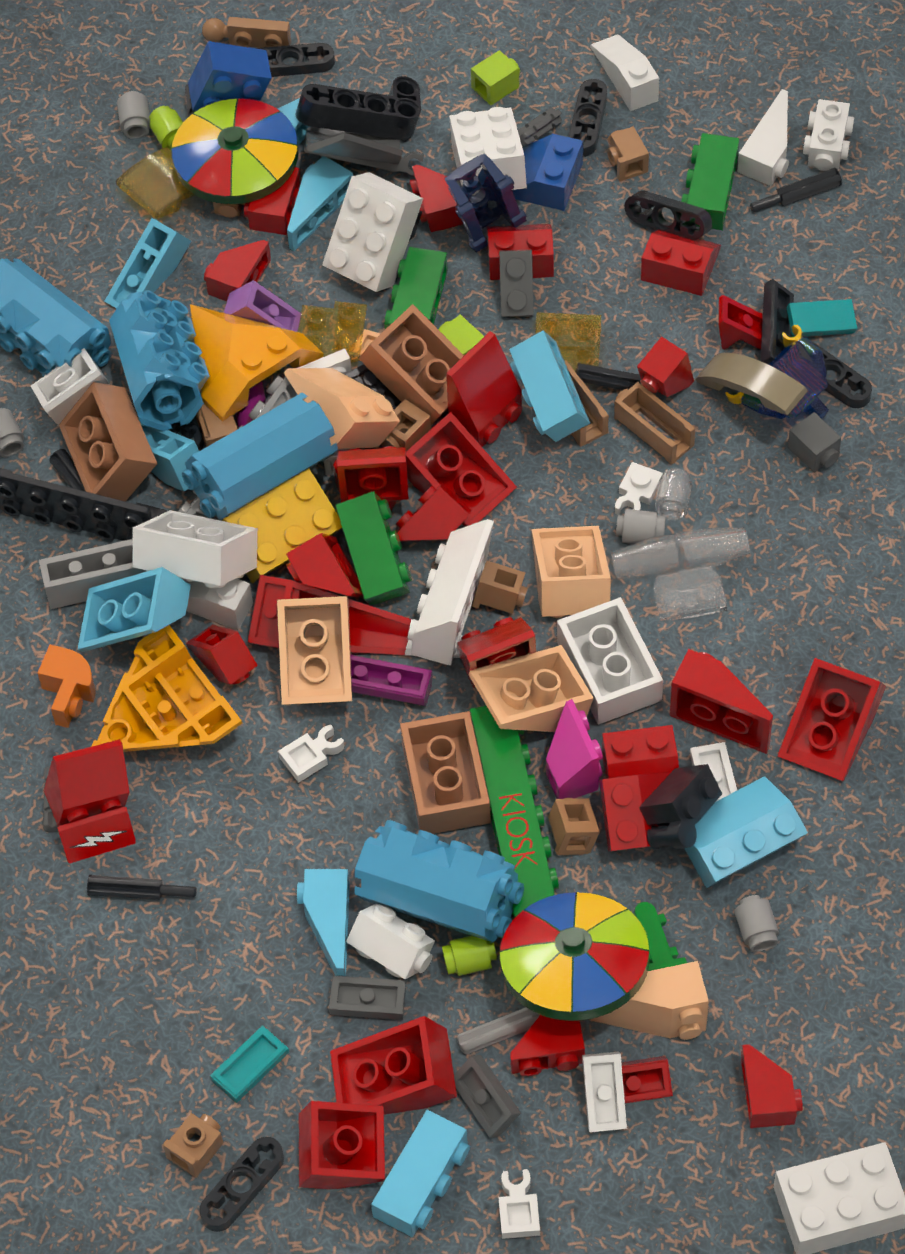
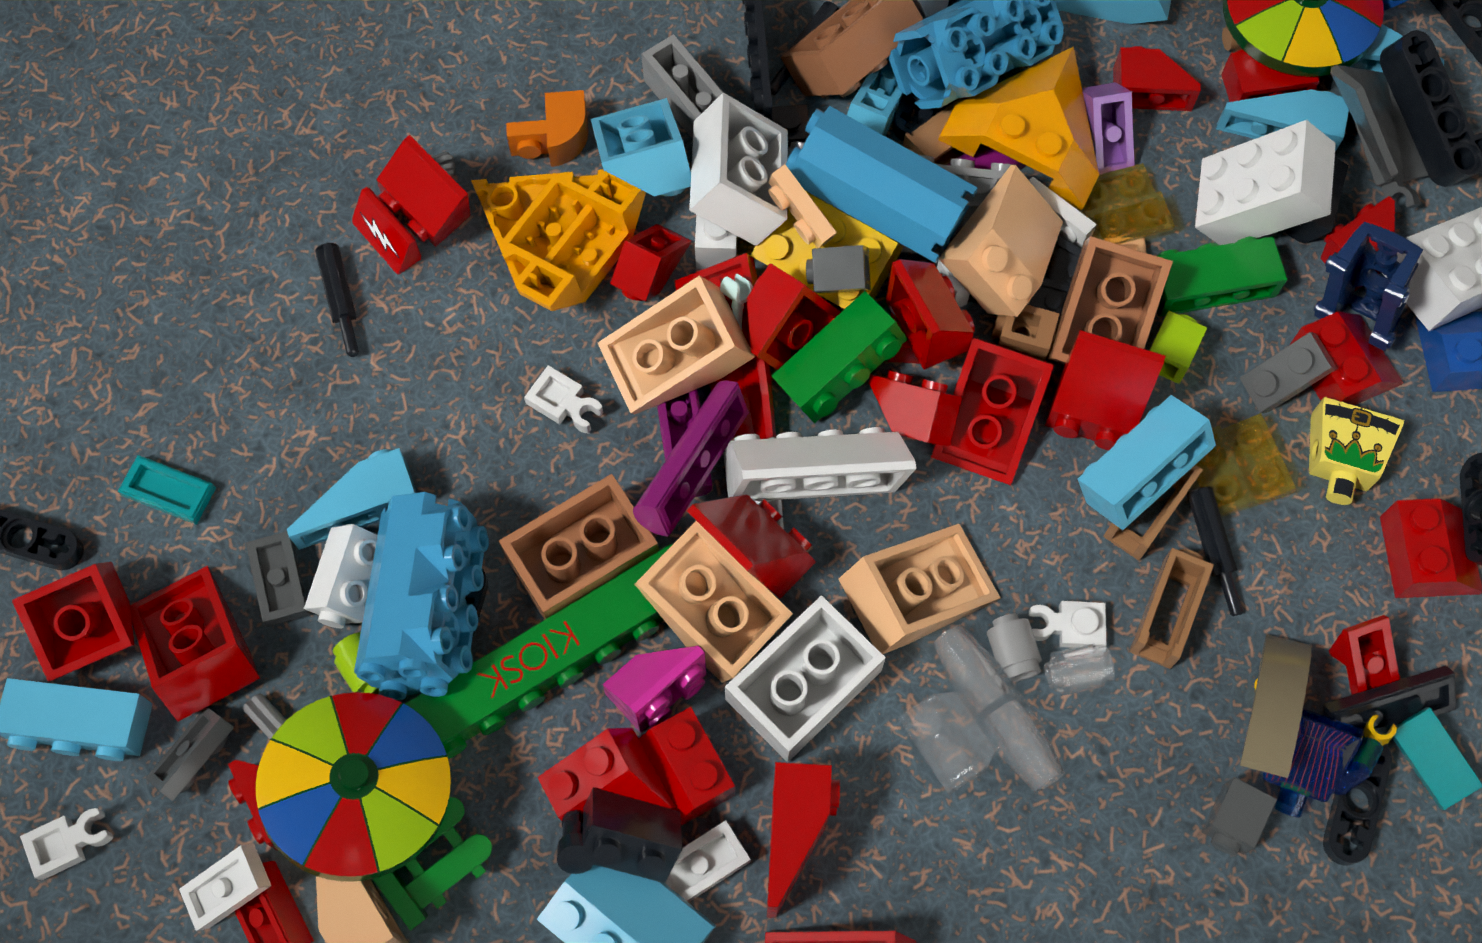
camera: 65 degrees right, 10 degrees up
(194, 1155) = (33, 471): medium nougat brick -> none
(257, 511) = (789, 194): none -> light nougat plate
(290, 589) = (738, 292): none -> light aqua hand
(314, 510) = (839, 269): none -> dark grey brick
(410, 667) = (692, 459): none -> magenta brick
(500, 588) = (863, 506): medium nougat brick -> none
(573, 826) = (553, 729): medium nougat brick -> none
(585, 272) = (1350, 447): none -> light yellow torso
(665, 369) = (1243, 590): red slope -> none

